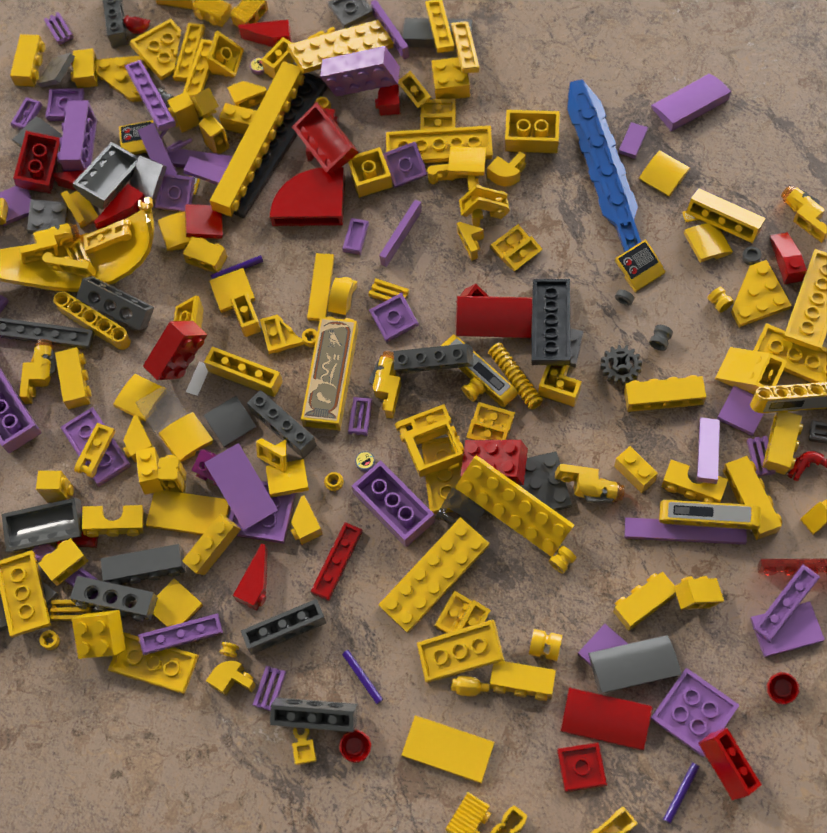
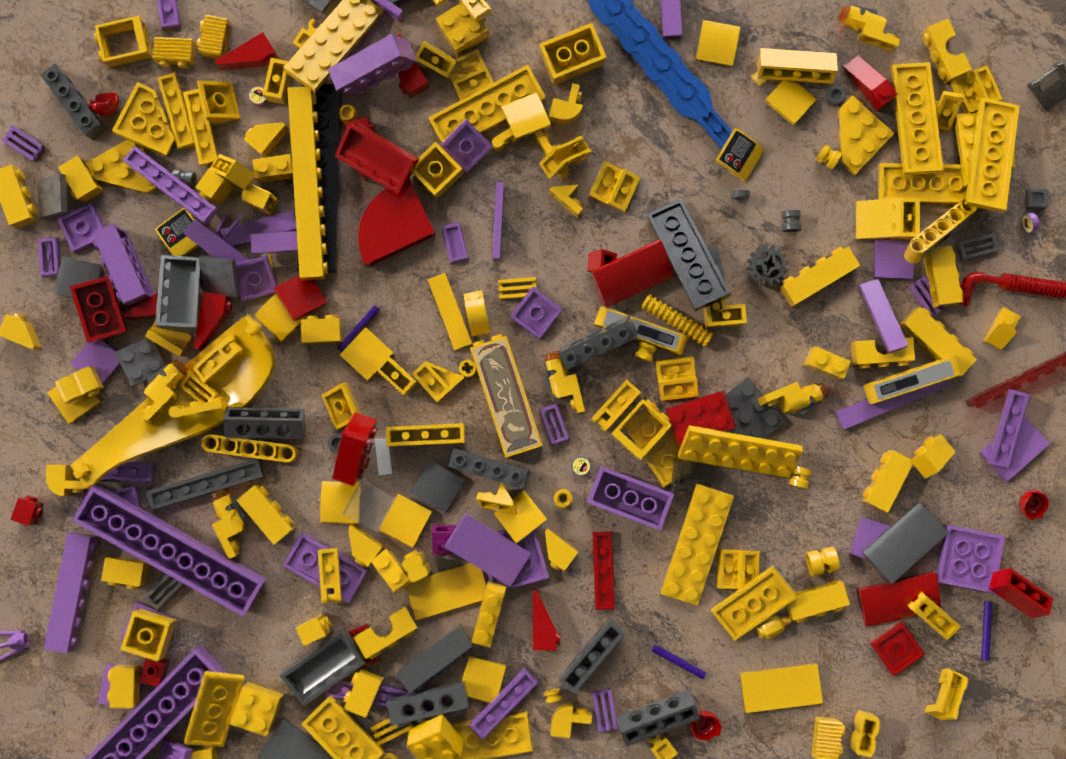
camera: 30 degrees left, 20 degrees up
(632, 749) = (935, 616): none -> yellow plate

